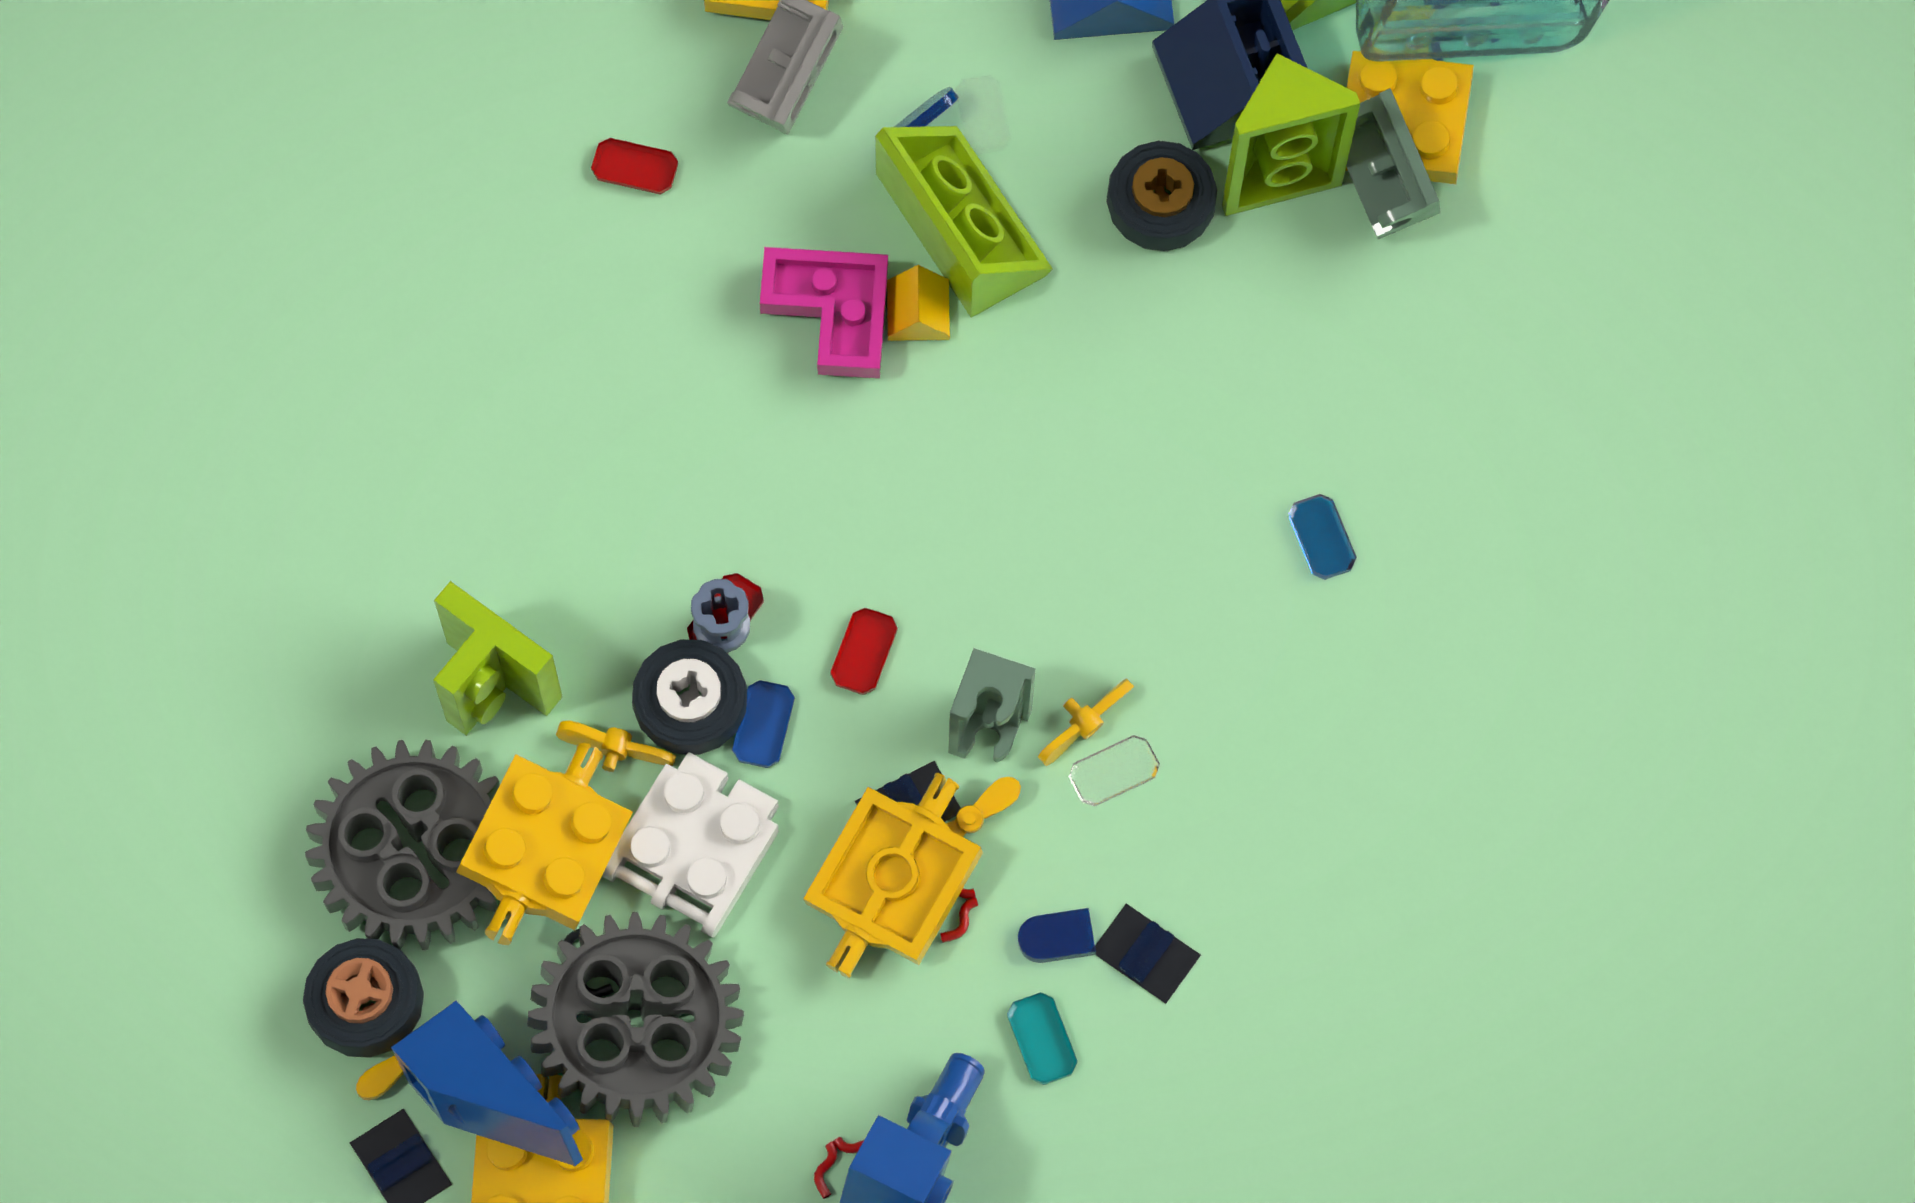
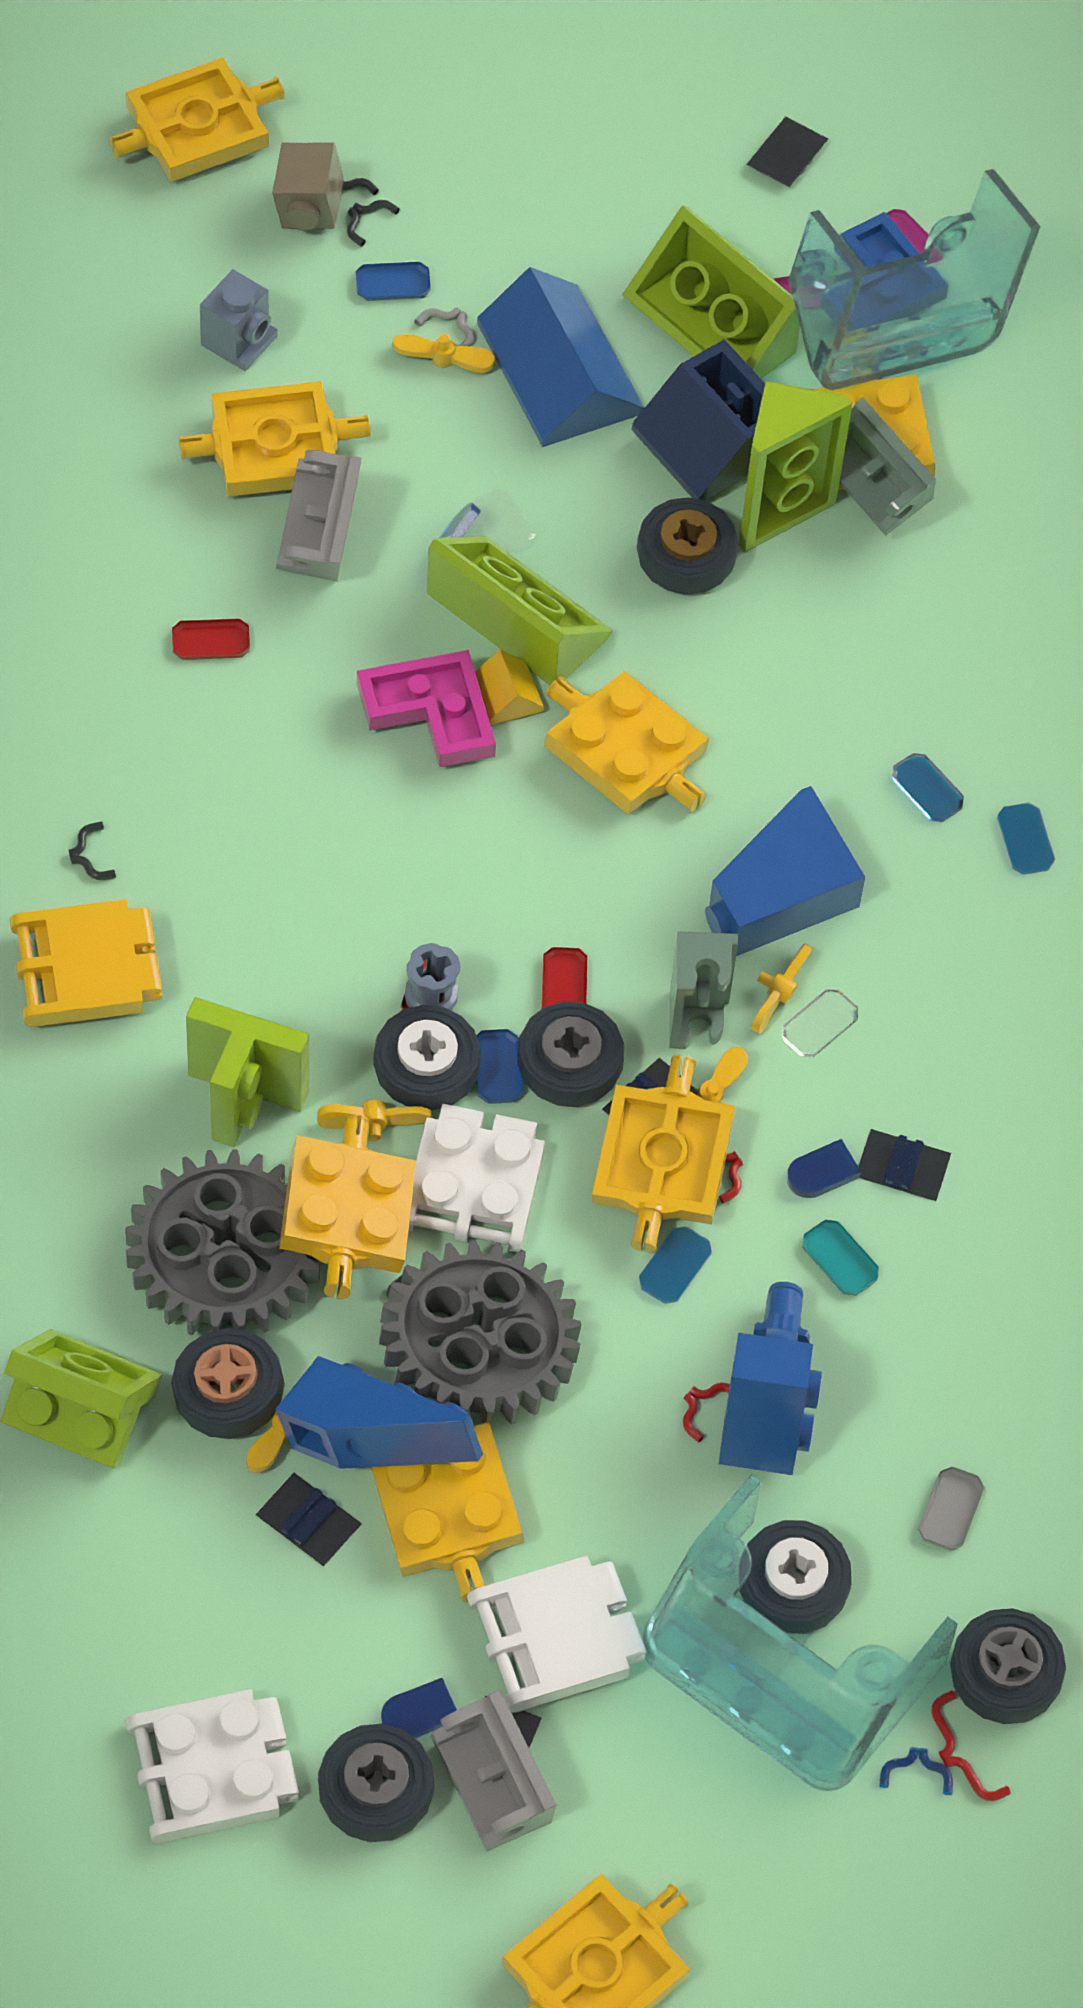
camera: 20 degrees left, 10 degrees down
(209, 963) = (77, 1395): none -> lime bracket
(382, 494) = (90, 962): none -> yellow plate
(423, 362) = (75, 857): none -> black piece
(838, 759) = (552, 1066): none -> black wheel
(868, 996) = (675, 1265): none -> piece
(1020, 401) = (626, 743): none -> yellow plate
(1127, 602) = (786, 878): none -> blue slope
(1406, 622) = (1026, 838): none -> piece

